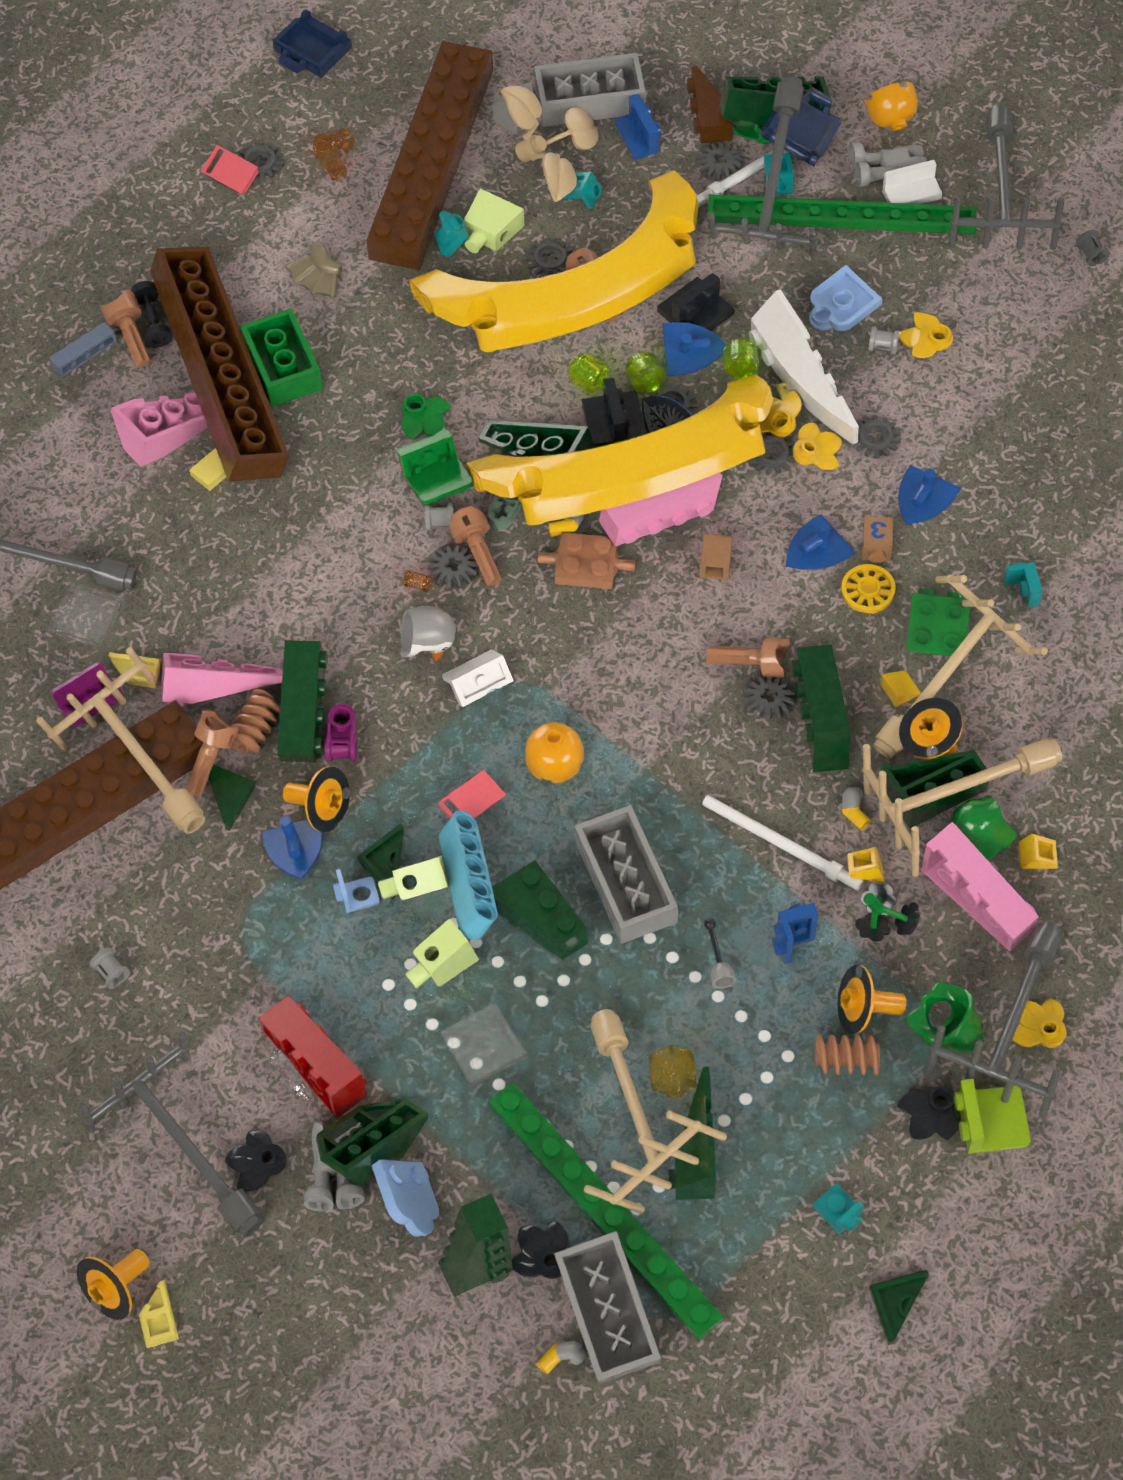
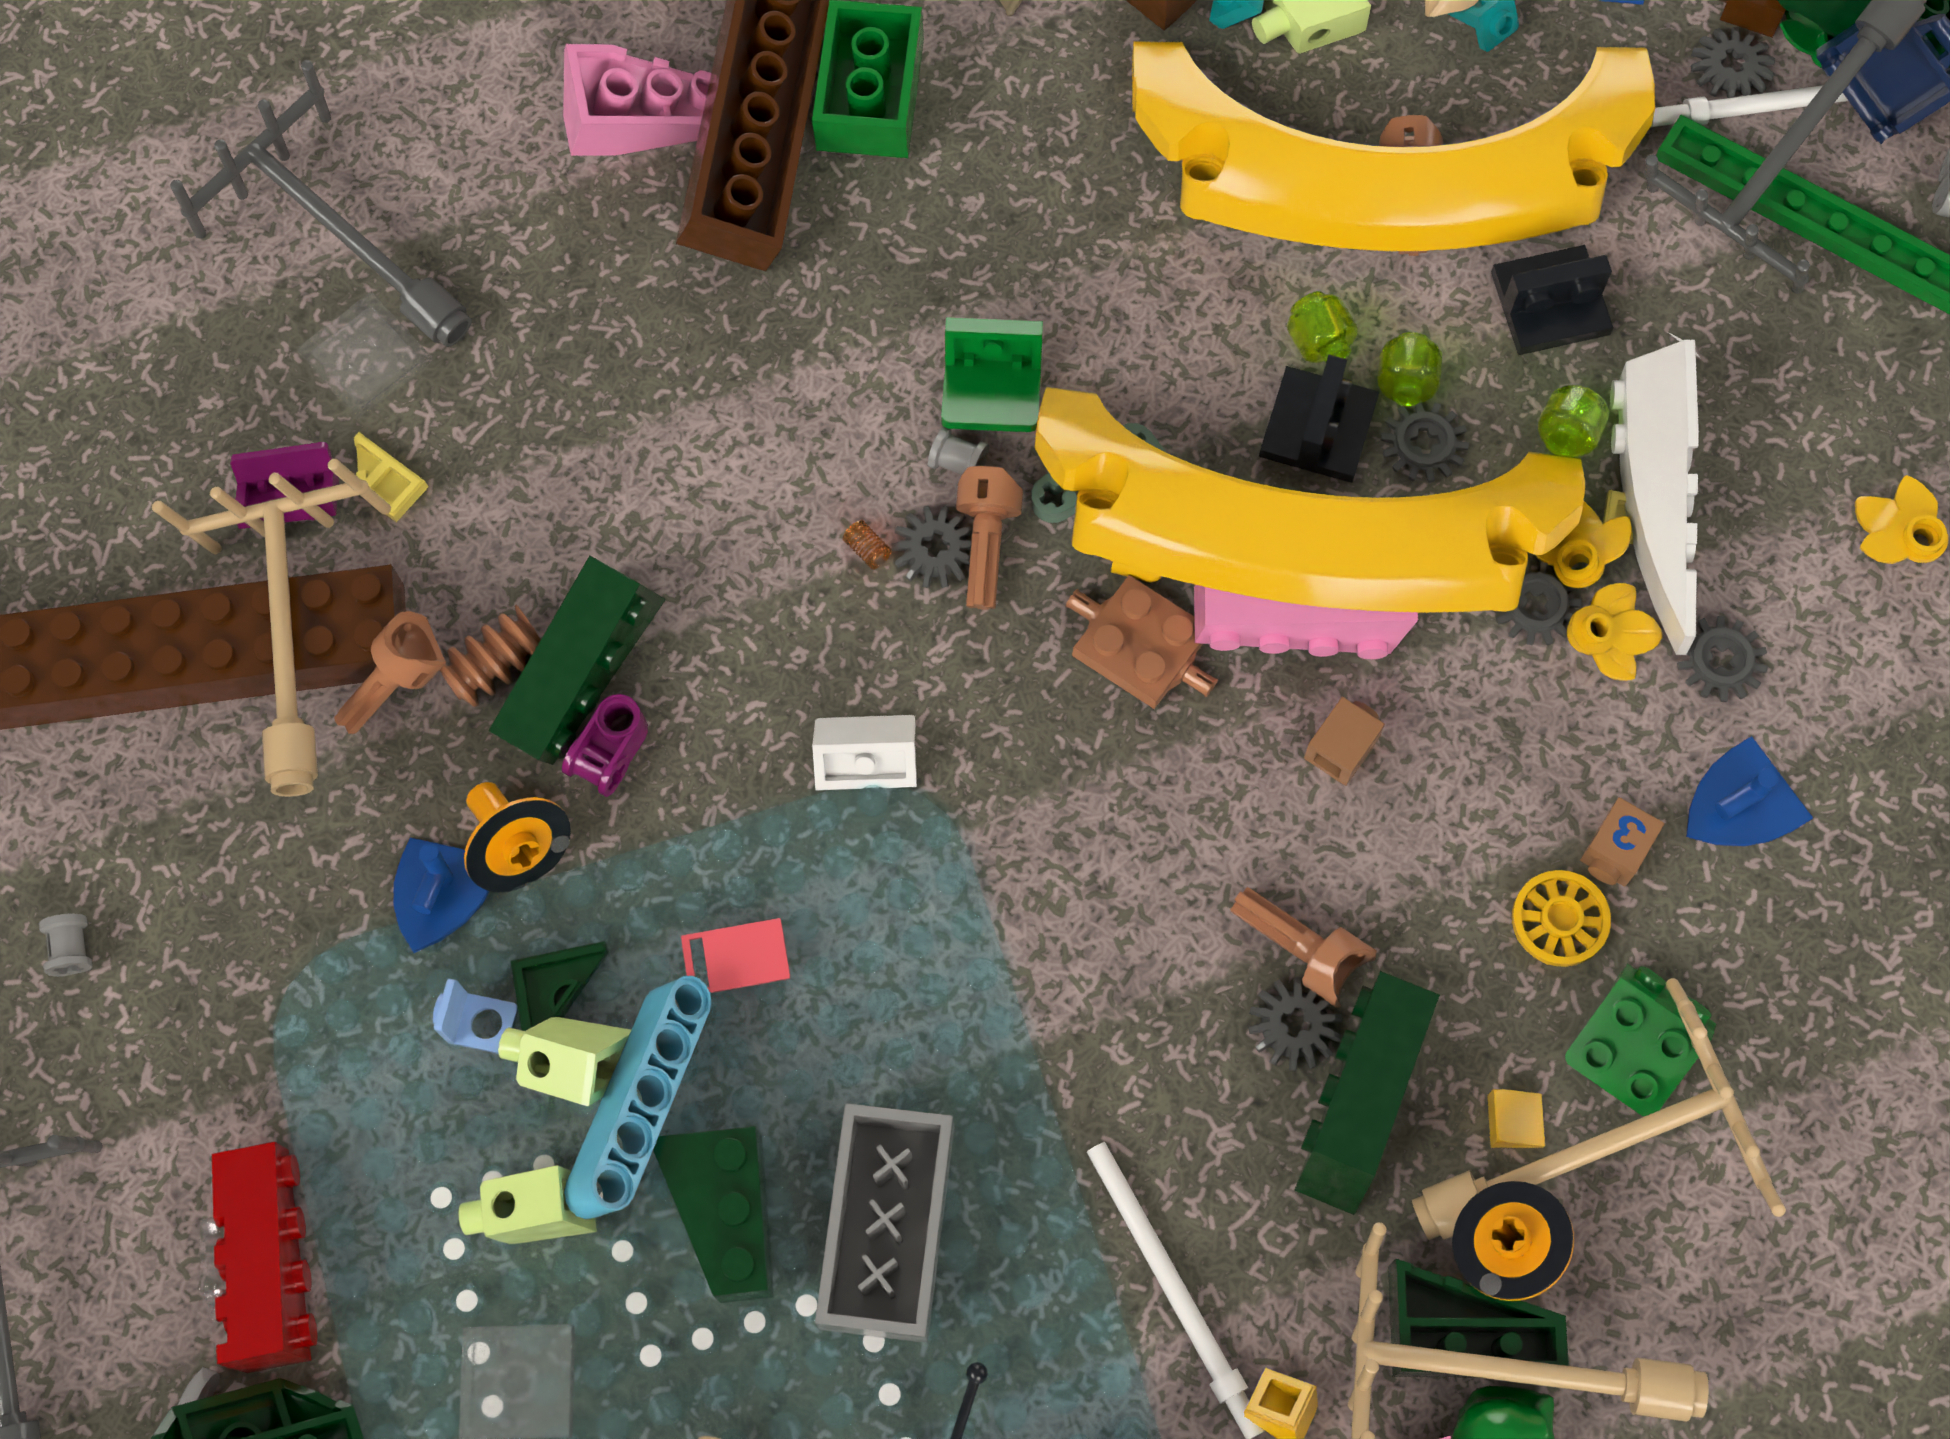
camera: 30 degrees right, 10 degrees up
(194, 681) = (449, 541): bright pink wedge -> none
(209, 470) = (664, 209): light yellow tile -> none
(230, 793) = (398, 751): dark green tile -> none
(251, 1159) = (82, 1374): black plate -> none
(426, 418) = (1034, 281): green plate -> none
(426, 630) = (827, 641): light grey piece -> none
(535, 439) = (1177, 409): dark green wedge -> none
(545, 250) = (1374, 87): dark grey gear -> none
(554, 752) = (902, 947): light orange cylinder -> none
(662, 412) = (1393, 462): shield -> none
(689, 347) = (1505, 360): blue shield -> none
(785, 180) = (1821, 141): teal bracket -> none
(817, 546) = (1520, 801): blue shield -> none
(842, 301) = (1796, 399): light blue plate -> none
(851, 807) = (1319, 1287): arm -> none
(883, 340) = (1826, 499): light grey bush -> none
(1027, 579) = (1831, 1054): teal bracket -> none

